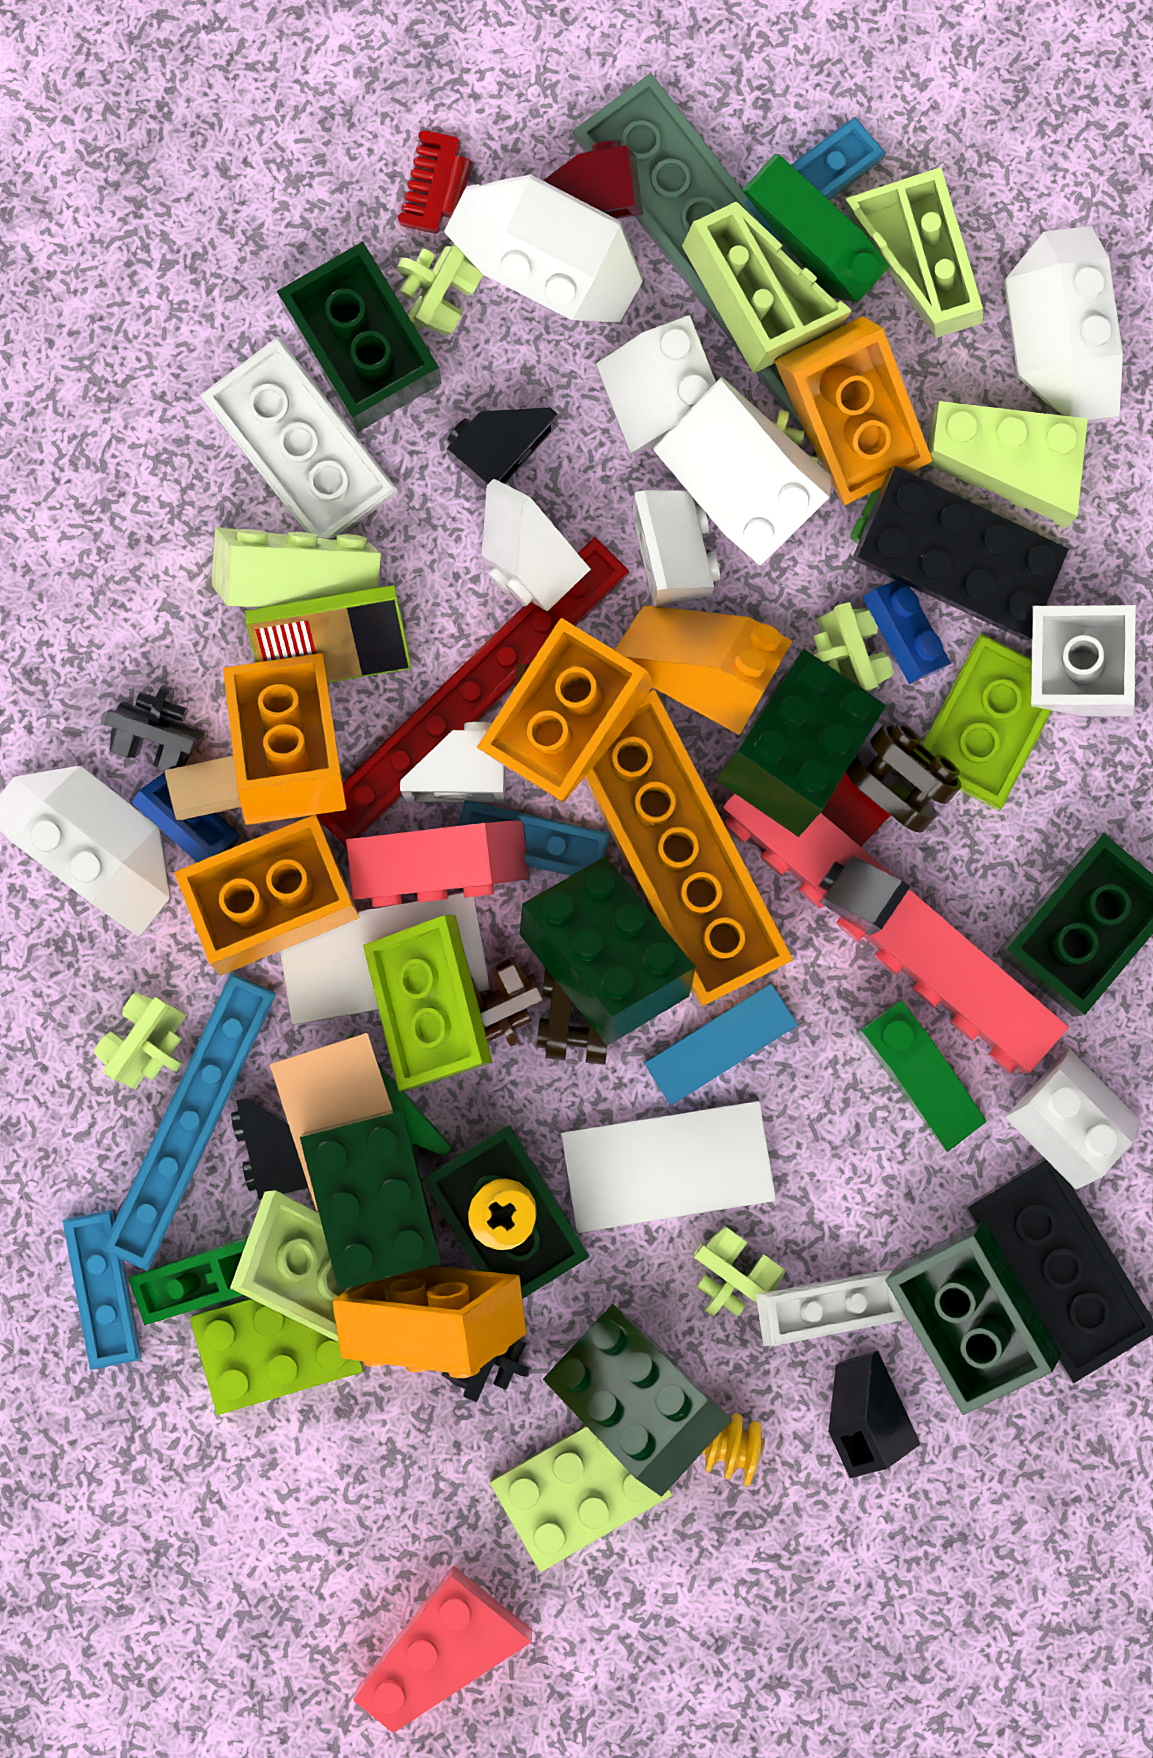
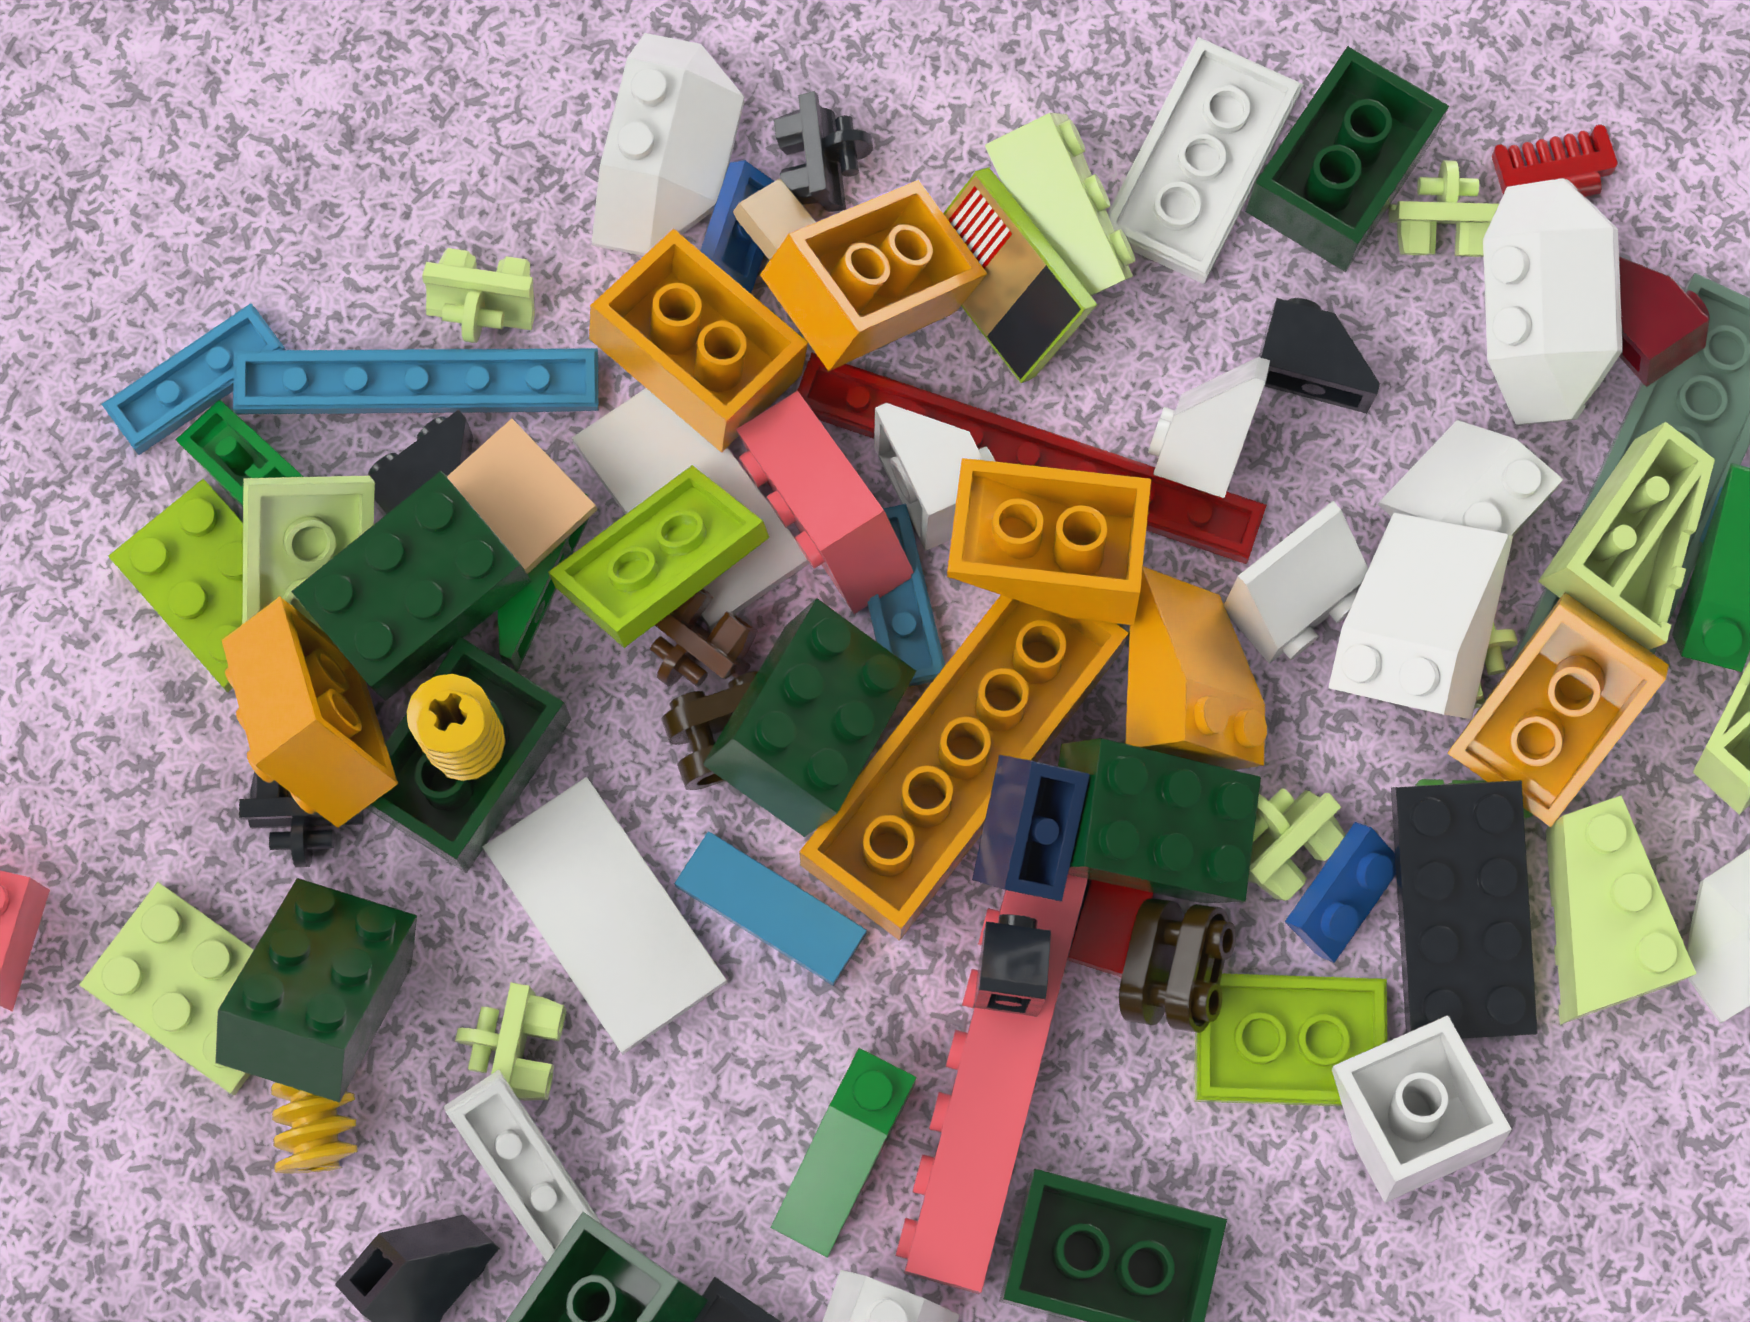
camera: 65 degrees right, 10 degrees down
(770, 833) = (1030, 827): none -> dark blue brick

